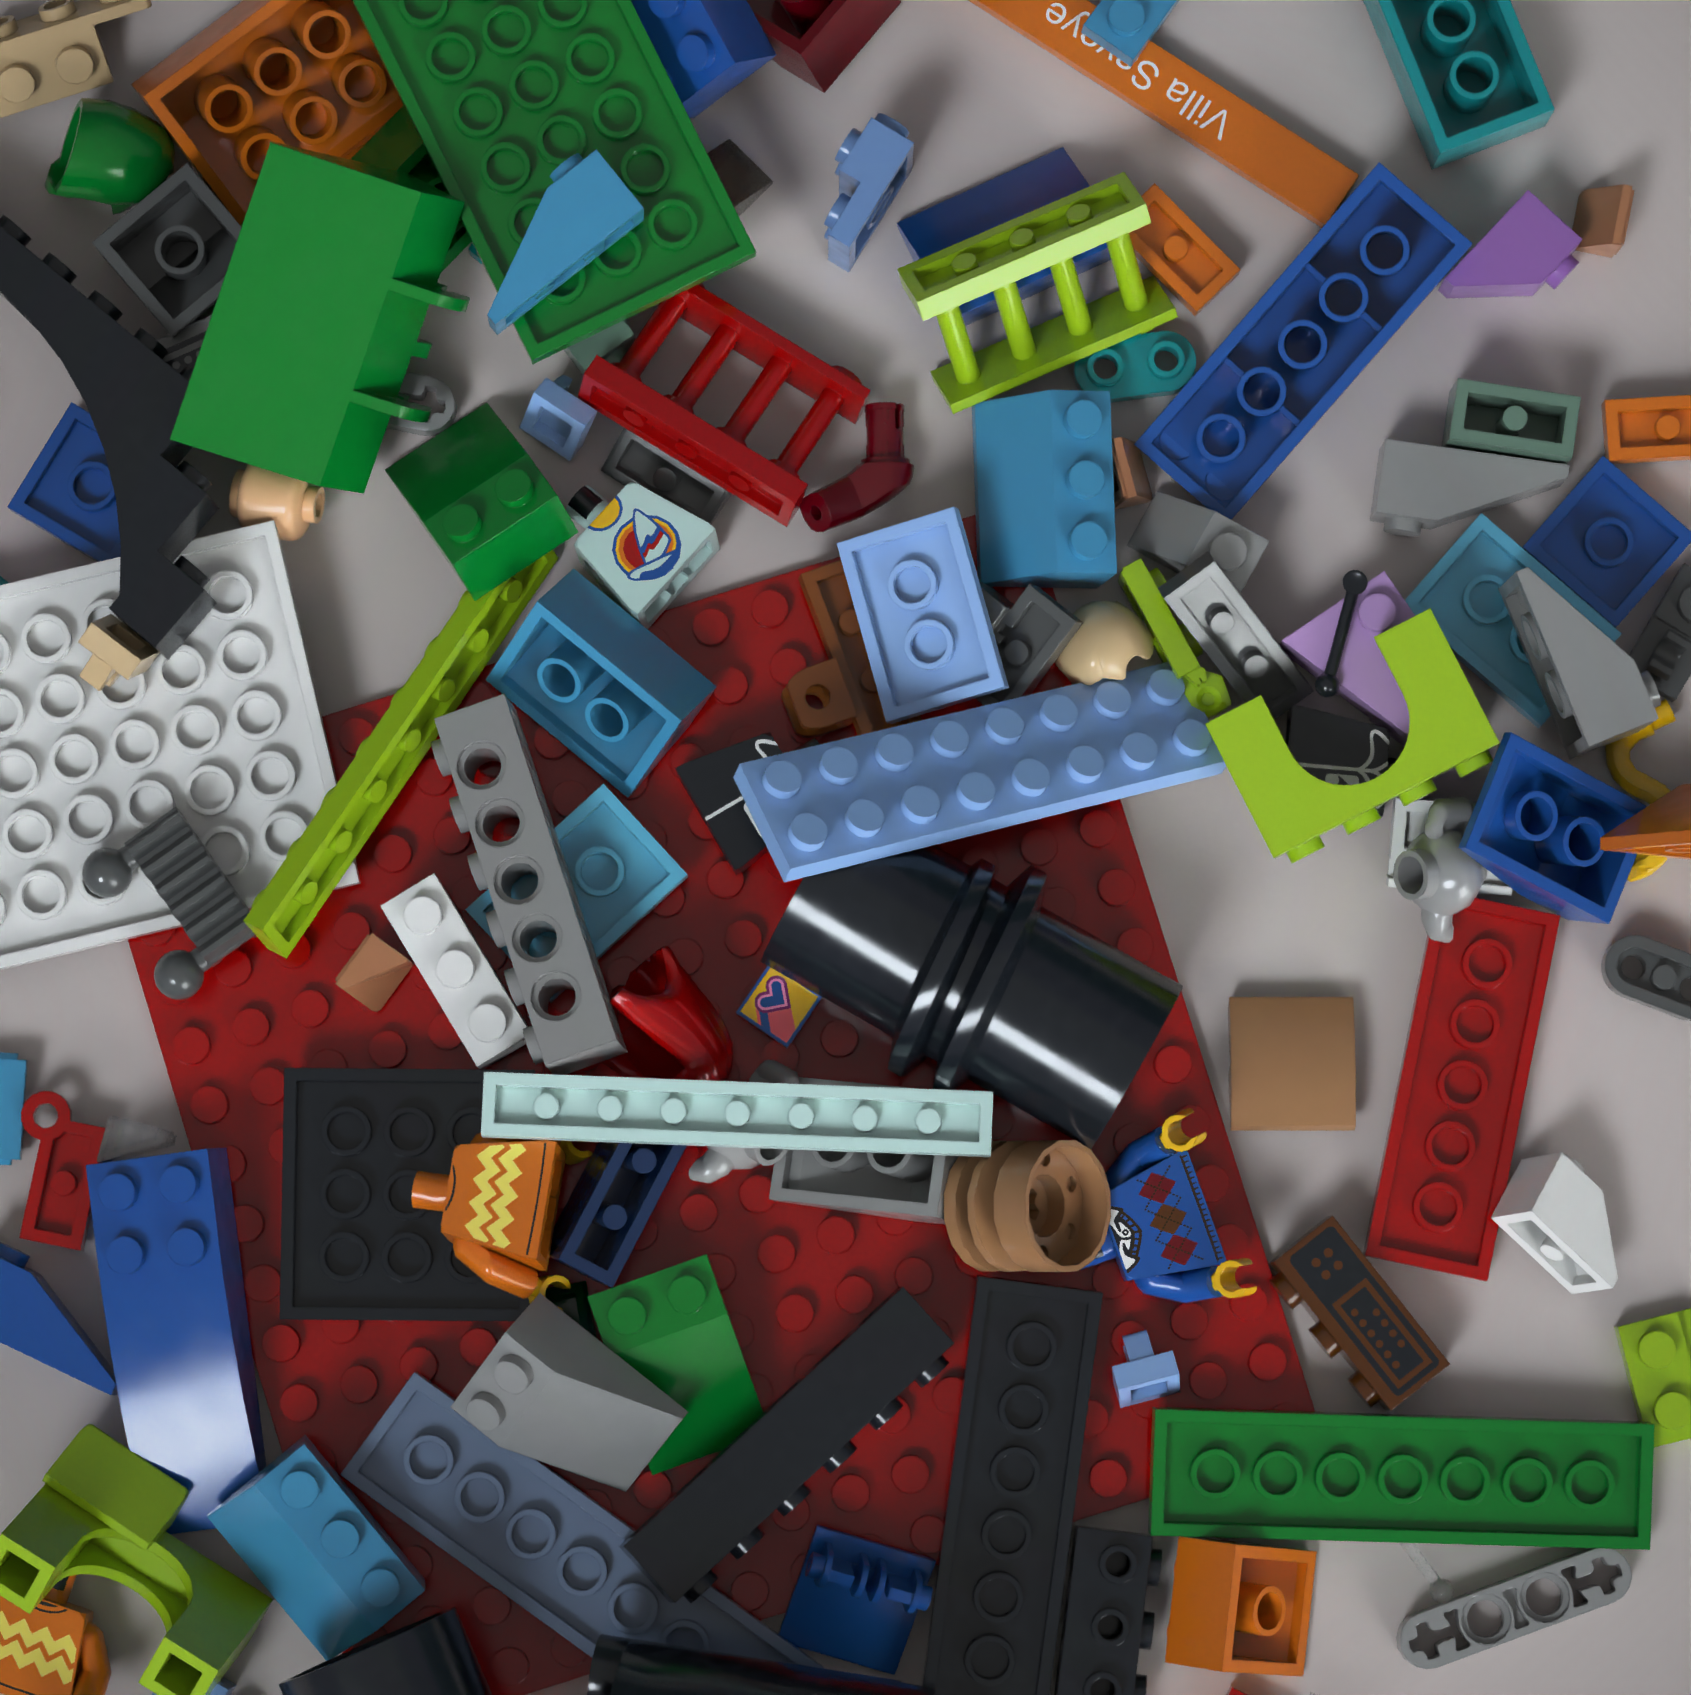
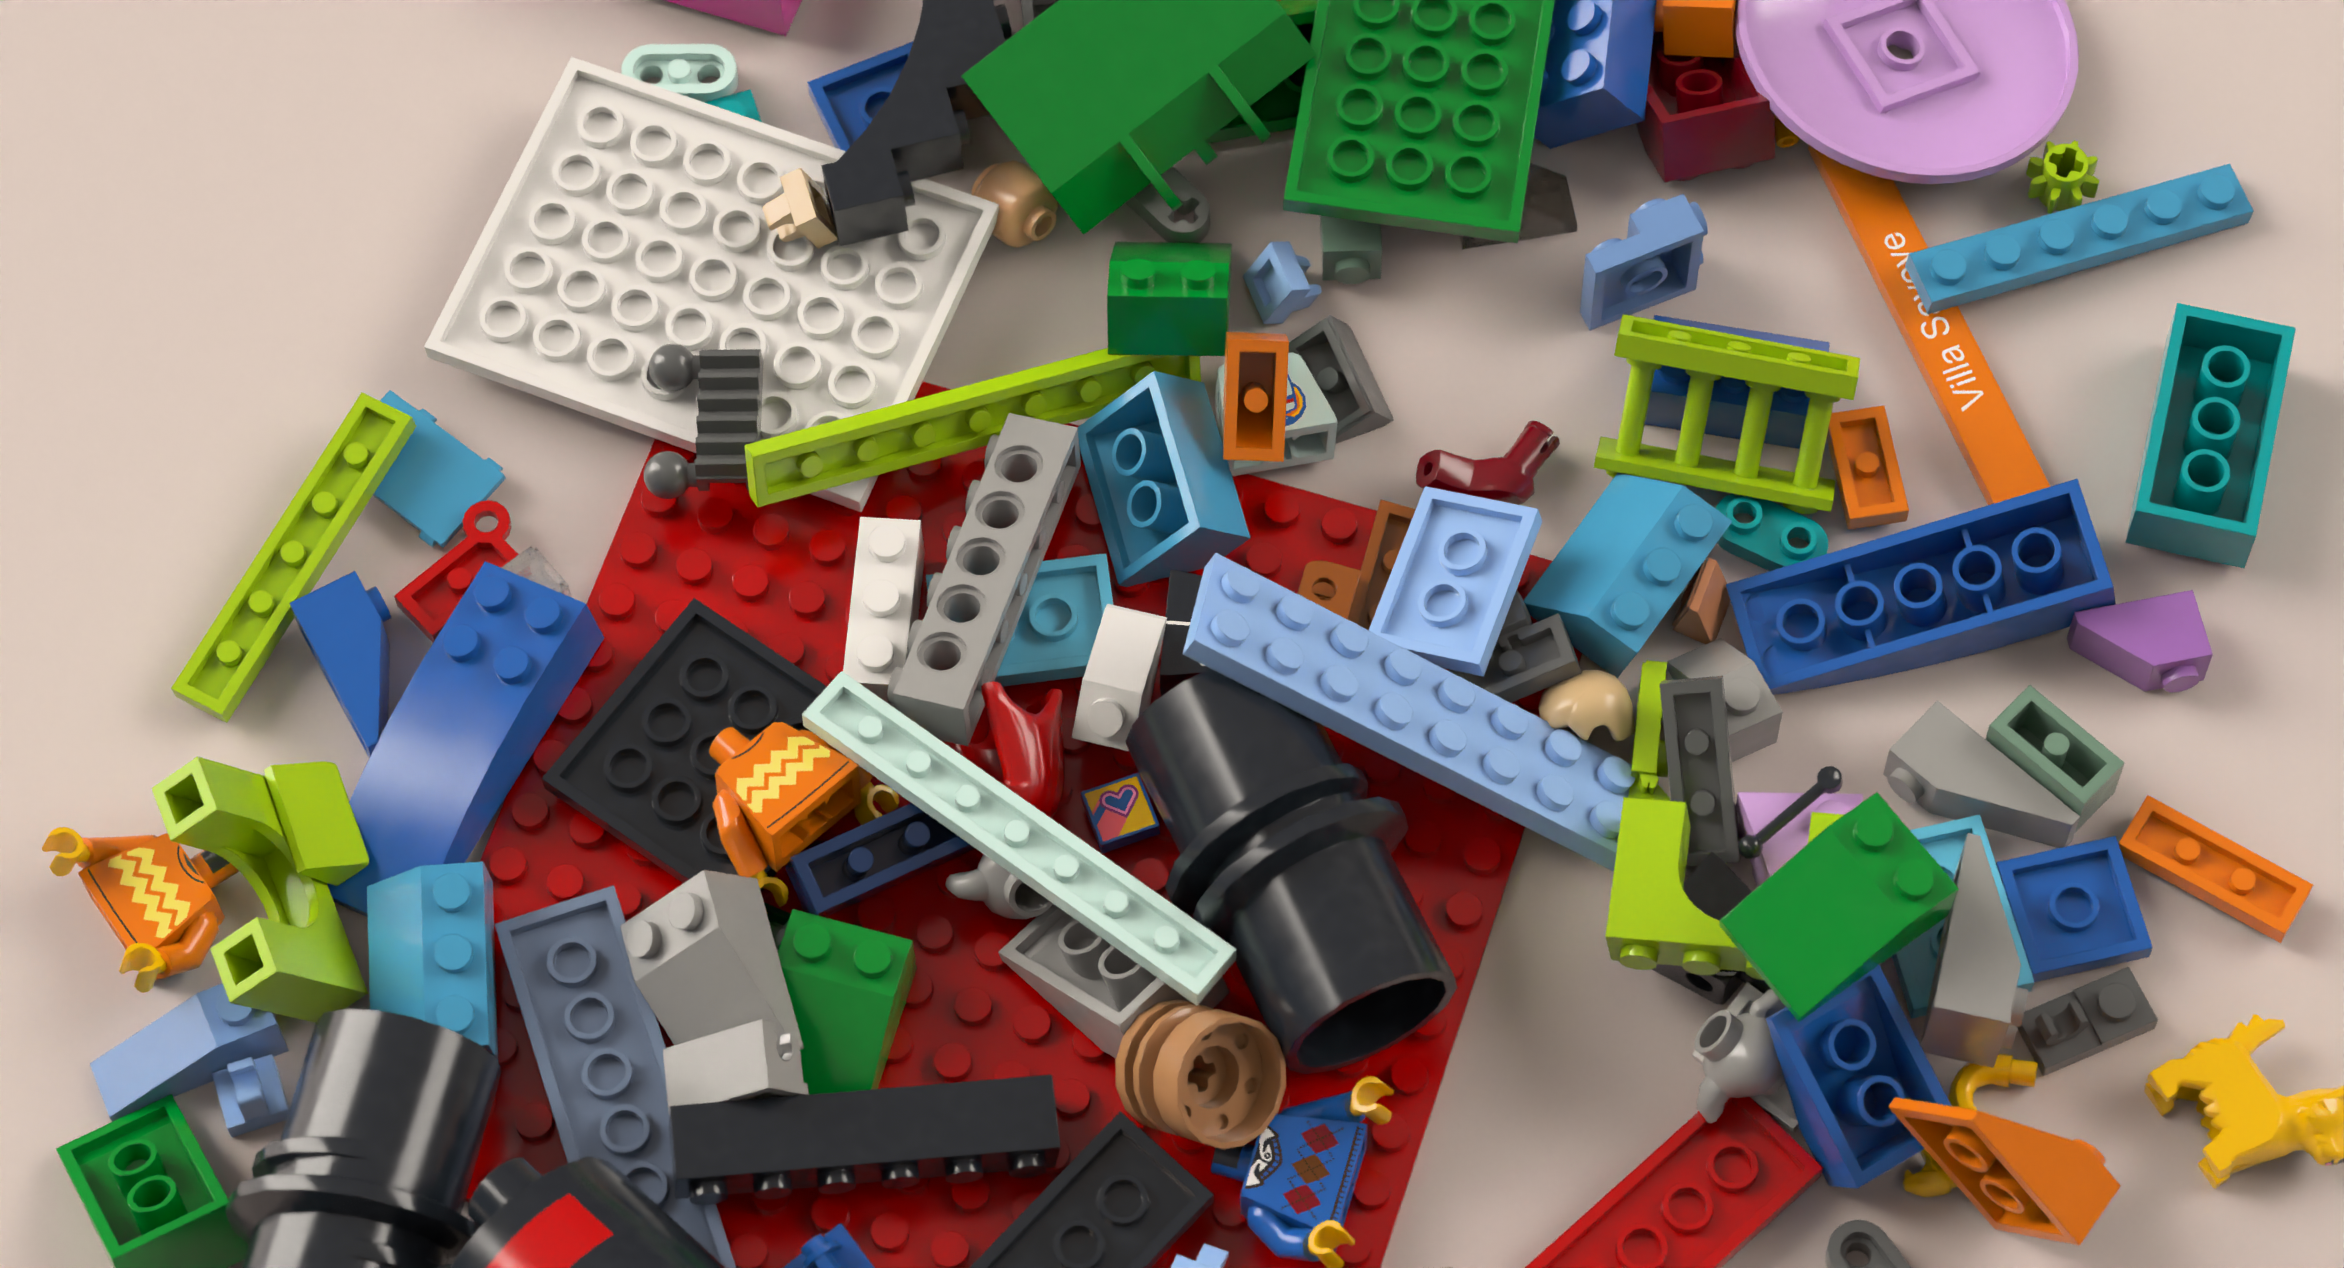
camera: 40 degrees right, 20 degrees down
(373, 972) = (818, 576): nougat slope -> none
(572, 226) = (1378, 117): dark azure slope -> none
(636, 560) = (1255, 396): none -> orange slope
(647, 1475) = (734, 1066): none -> hinge
(705, 898) = (1119, 676): none -> white slope
(722, 451) = (1385, 375): red fence -> none
(1292, 1064) = (1509, 1140): medium nougat slope -> none
(1463, 718) = (1840, 907): none -> green slope
(1603, 219) = (2244, 666): nougat slope -> none

